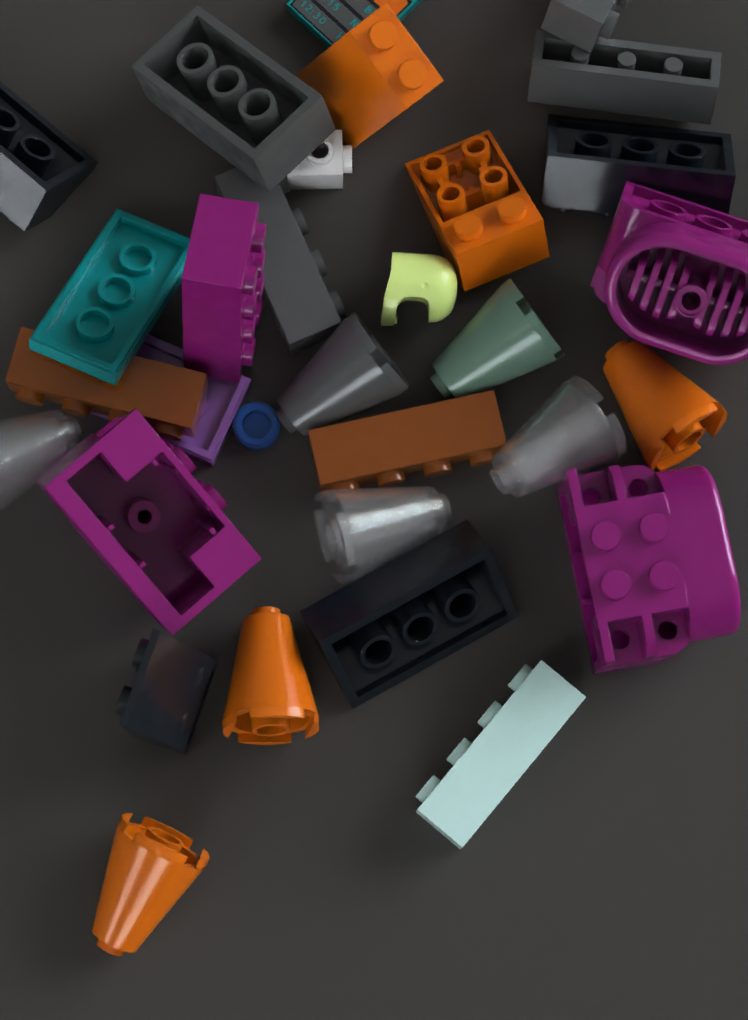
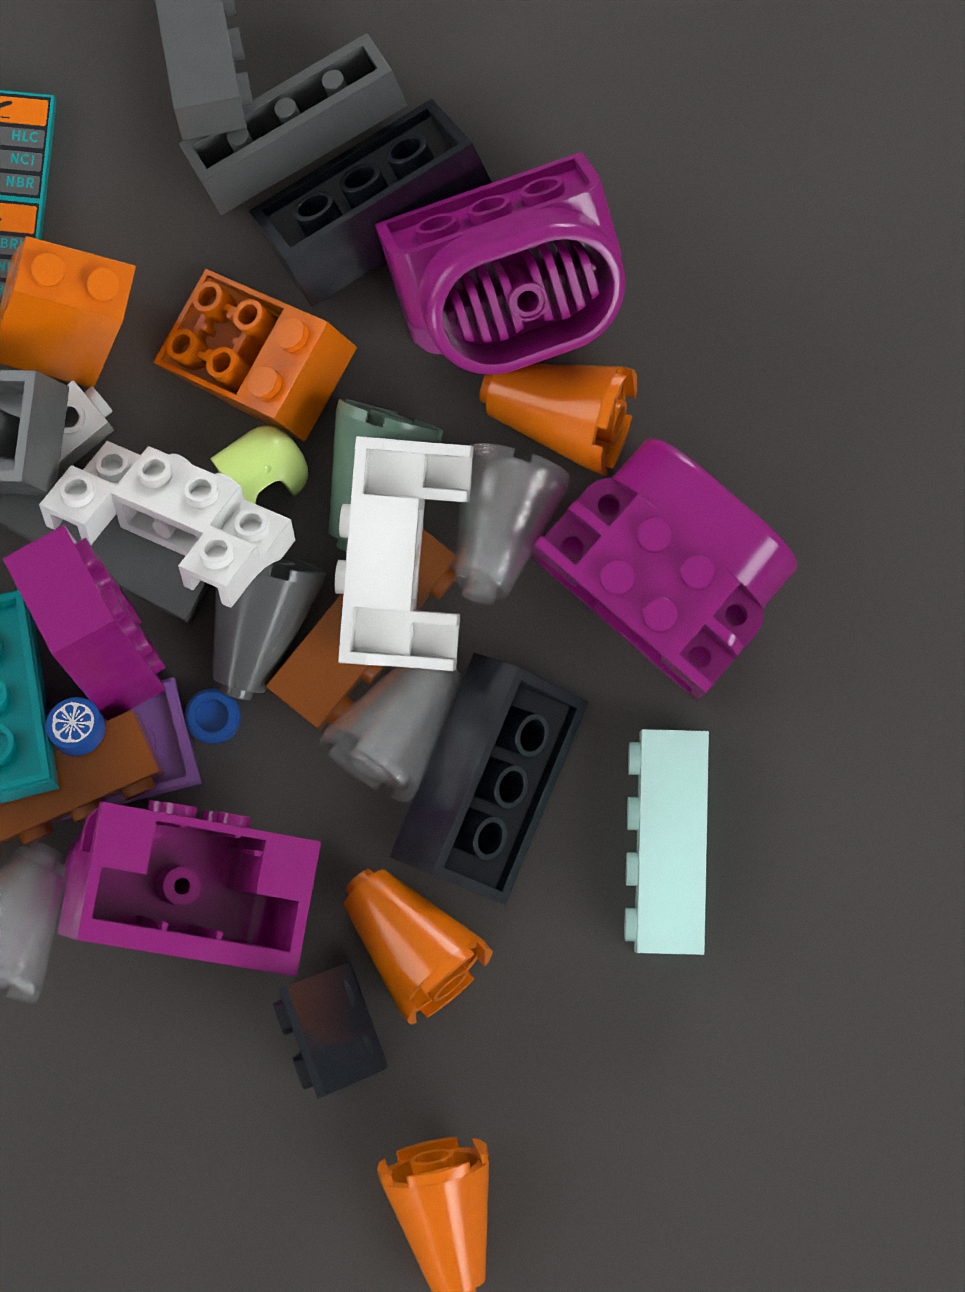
camera: 35 degrees left, 5 degrees up
(159, 354) = (75, 726): none -> blue tile
(343, 262) = (176, 507): none -> white bracket
(461, 398) = (385, 553): none -> white bracket

